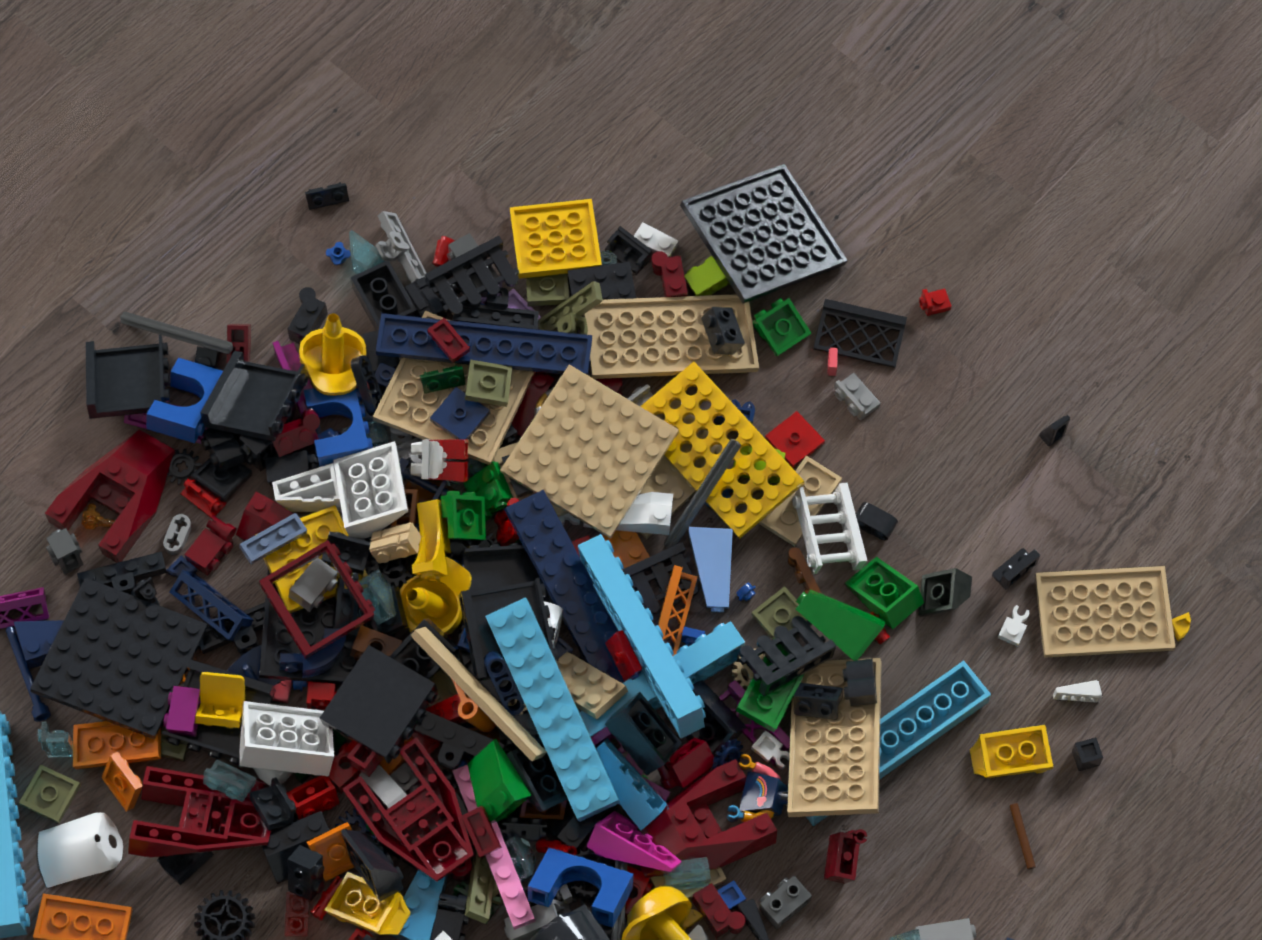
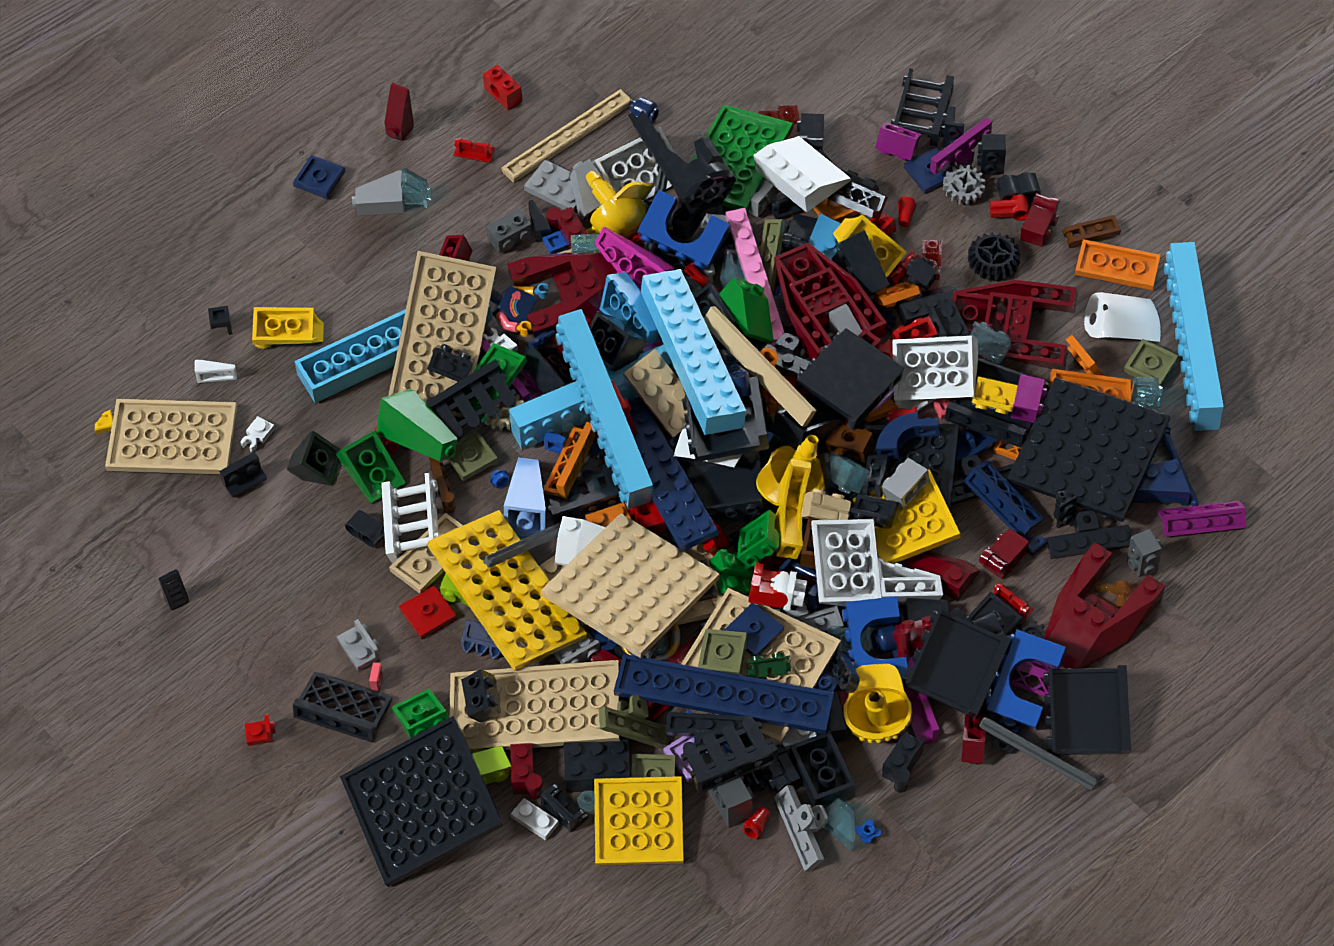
camera: 170 degrees left, 10 degrees down
(182, 536) = (1040, 574): light grey beam -> none
(273, 538) = (942, 523): sand blue plate -> none
(331, 195) = (868, 897): black hinge -> none
(343, 570) = (889, 427): dark red window -> none
(448, 340) = (759, 689): dark red plate -> none
(481, 831) = (765, 274): dark red plate -> none
(861, 682) = (410, 369): black brick -> none
(1023, 839) = (293, 271): reddish brown bar -> none

